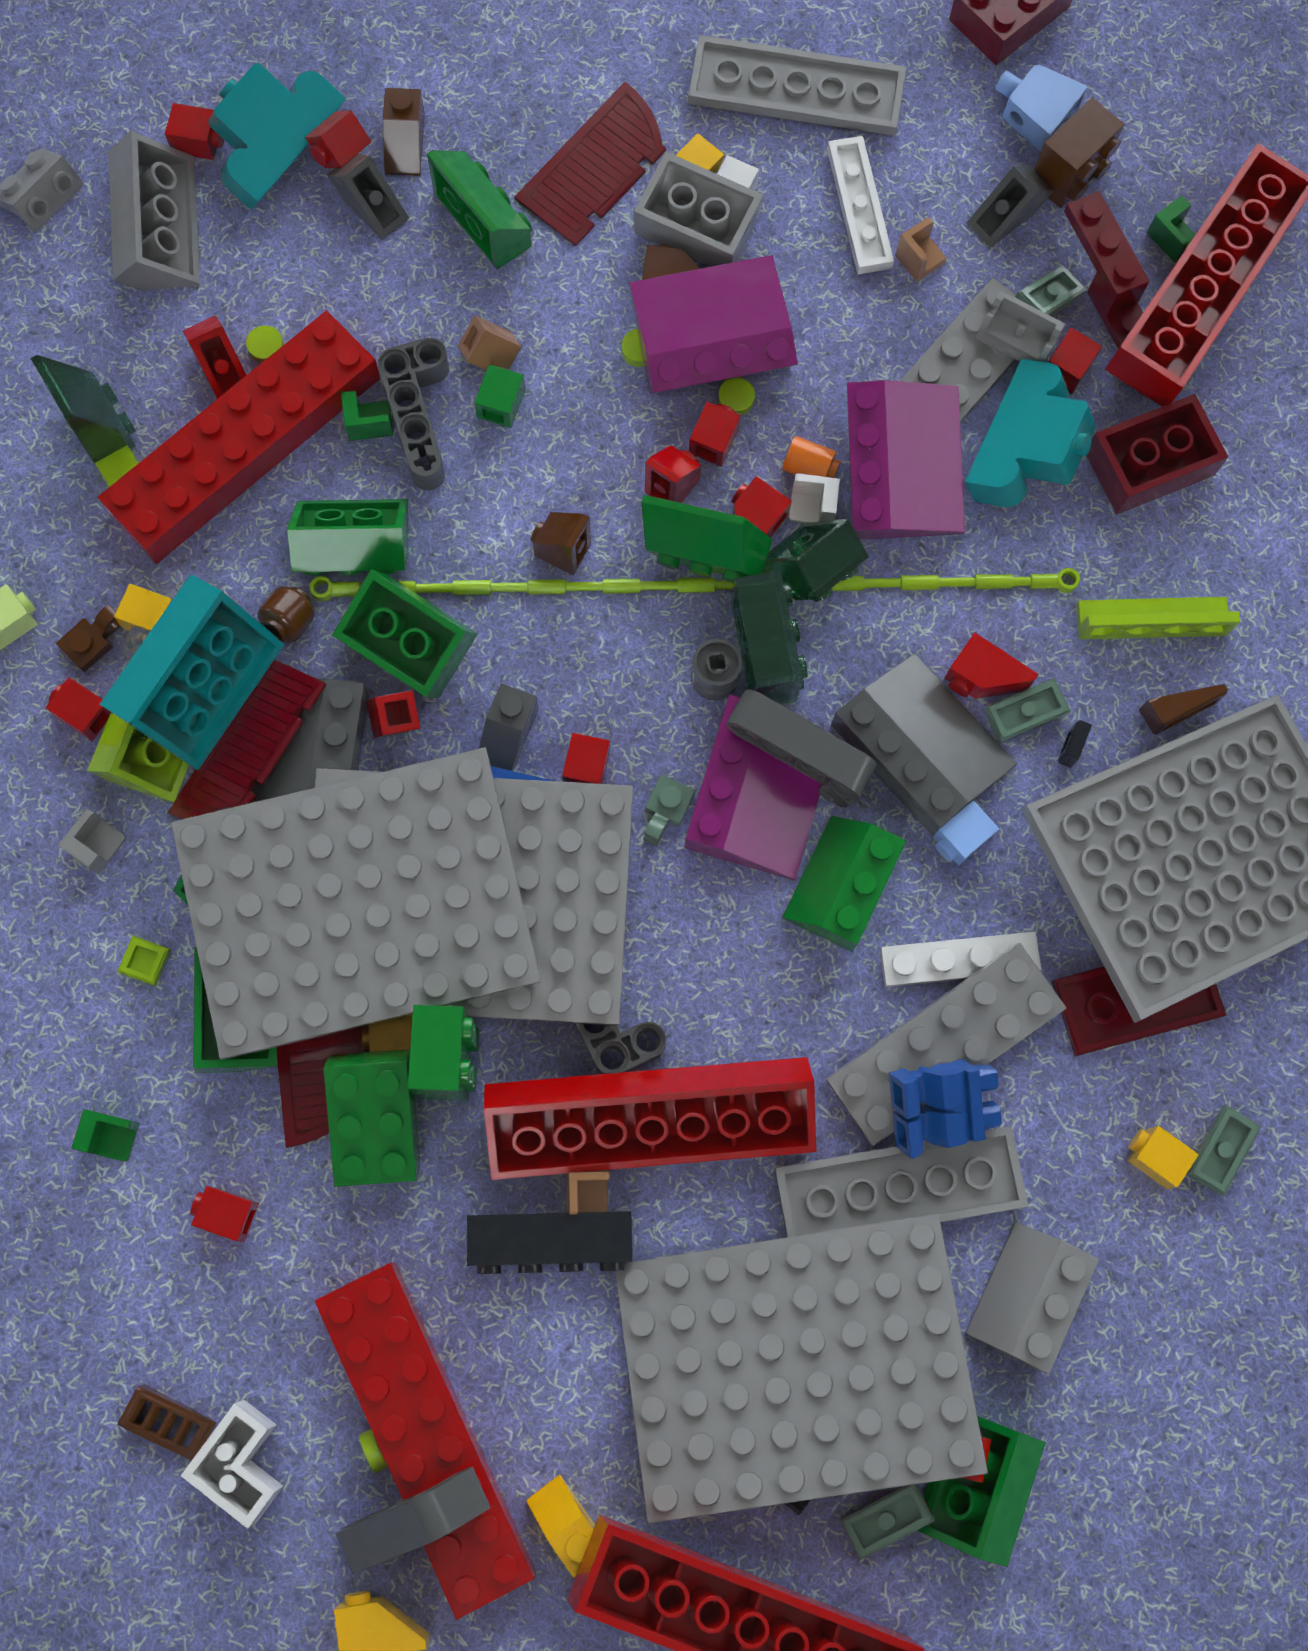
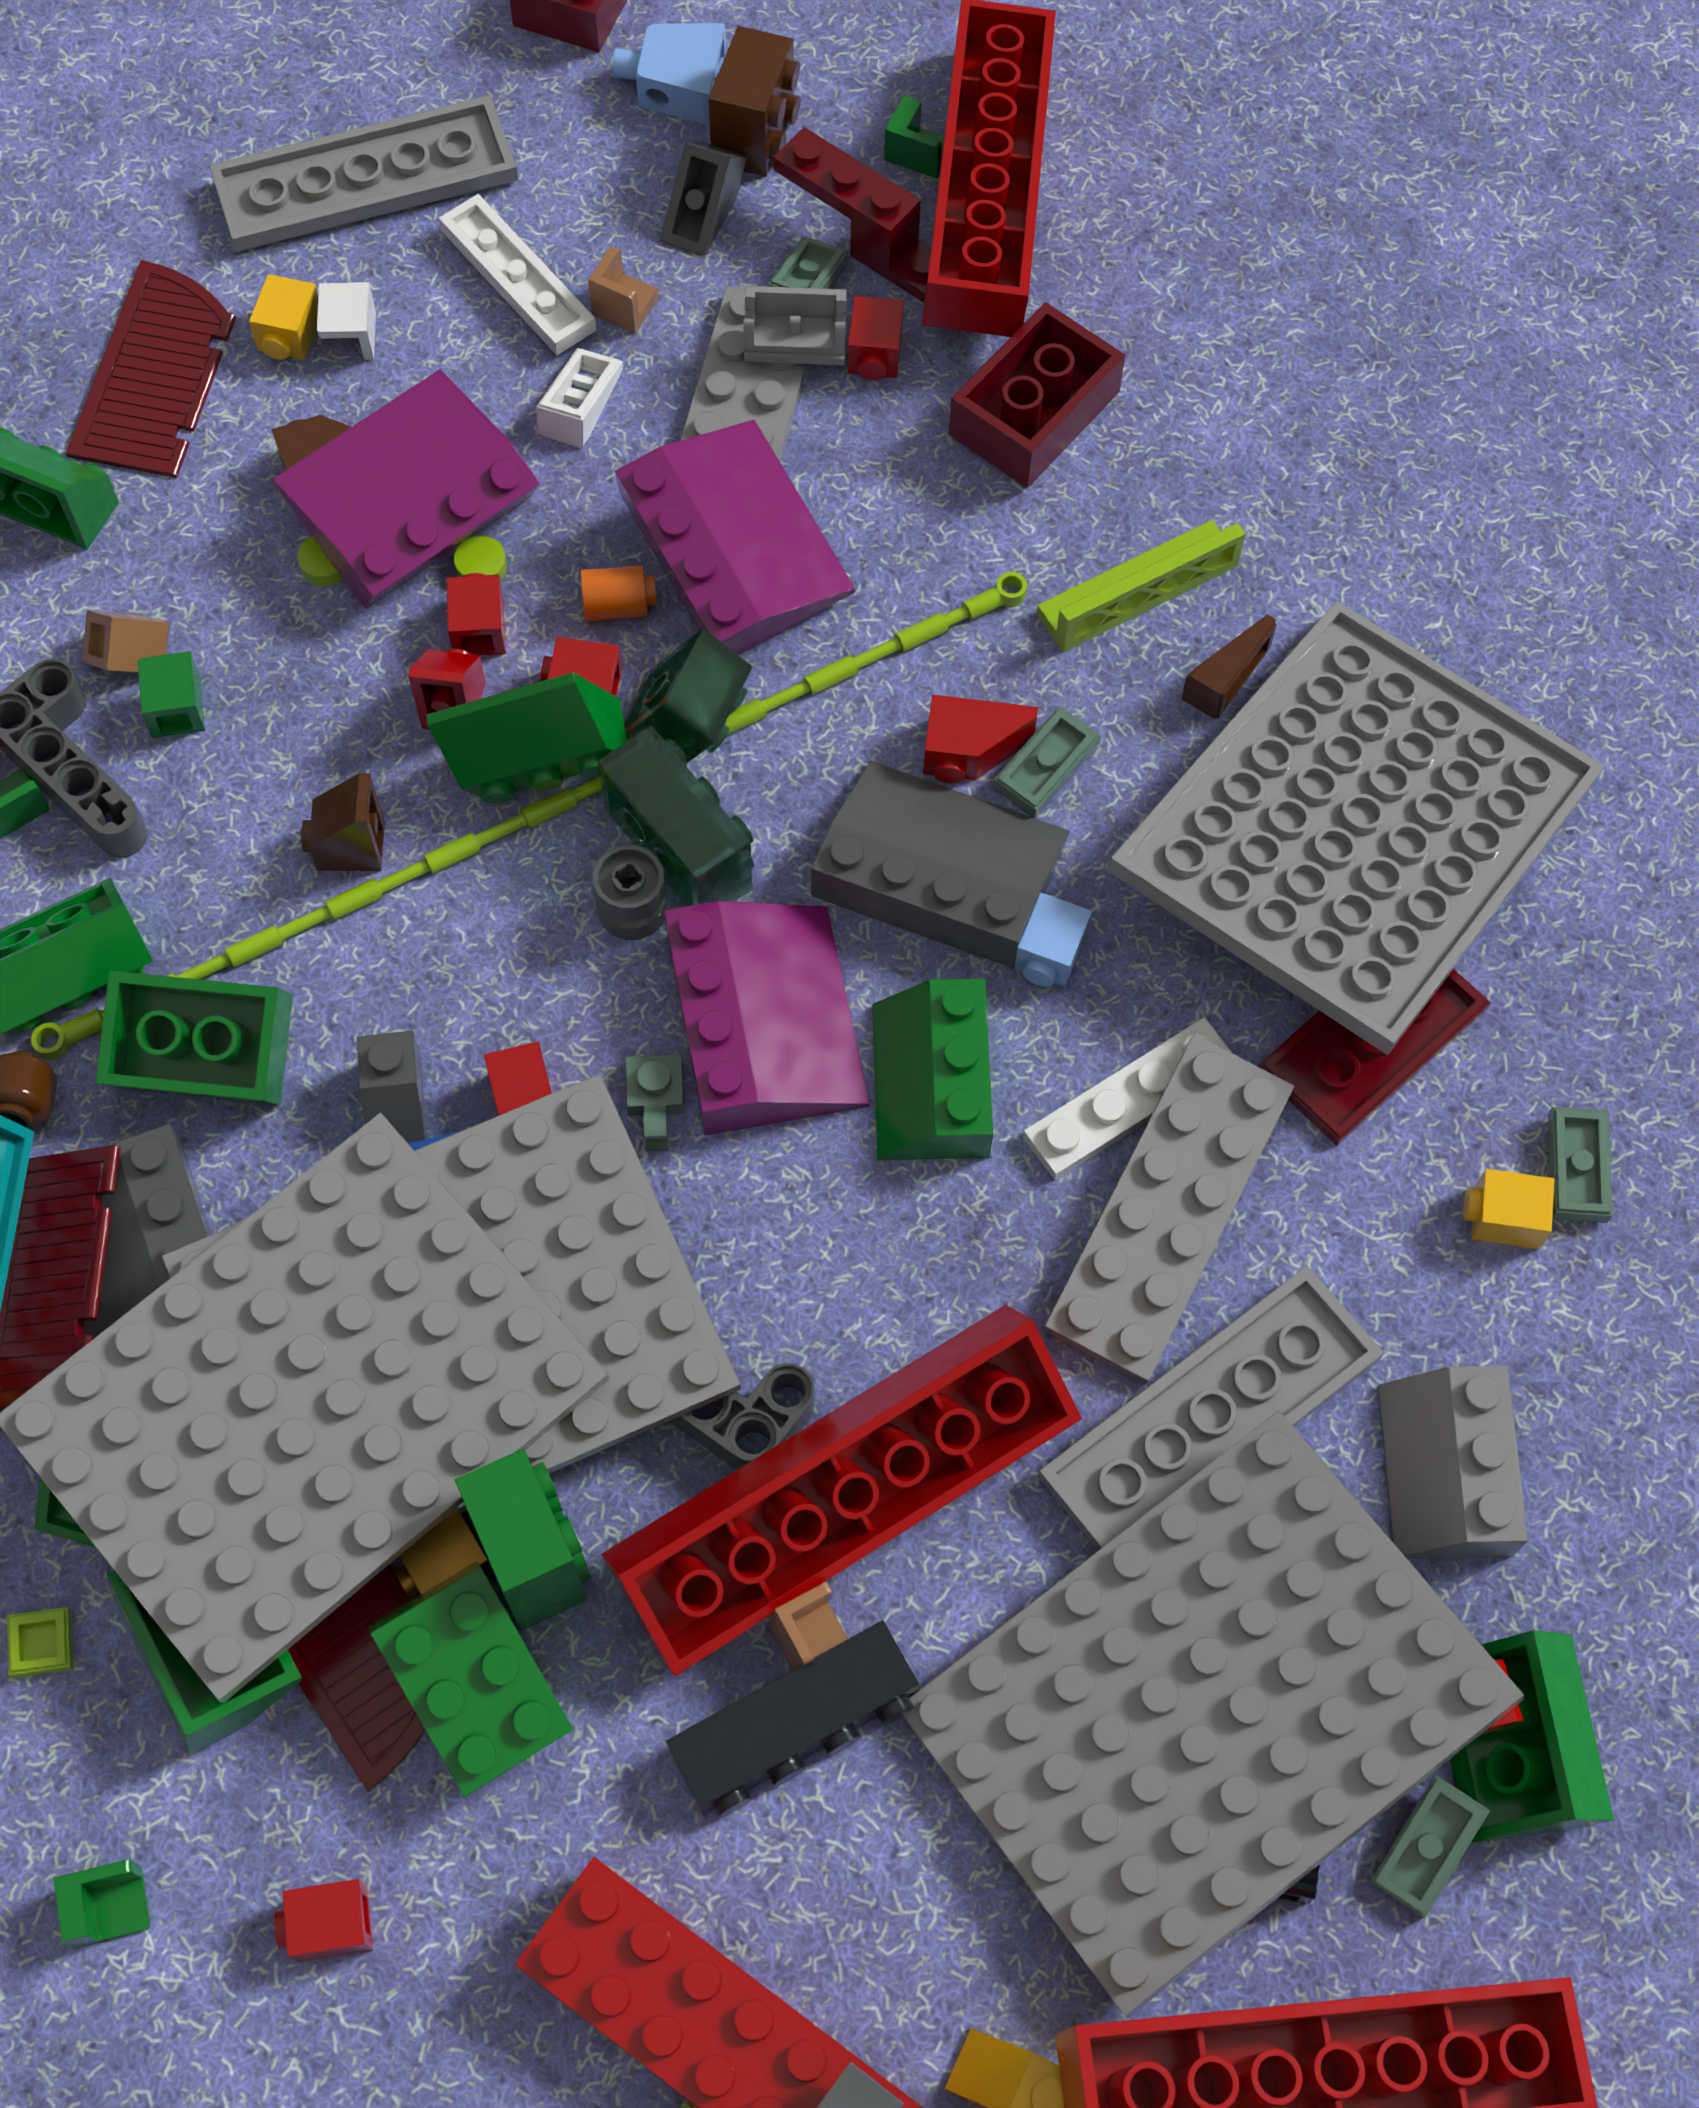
camera: 25 degrees left, 10 degrees down
(393, 714) = (229, 1147): red brick -> none
(697, 212) = (314, 363): light grey slope -> none
(803, 746) = (794, 925): dark grey beam -> none
(814, 498) = (644, 633): white panel -> none
(841, 325) = (571, 423): none -> white slope
(951, 1108) = (1225, 1263): blue hips -> none
(1031, 436) = (874, 440): teal brick -> none
(1074, 743) = (1126, 771): black tile -> none

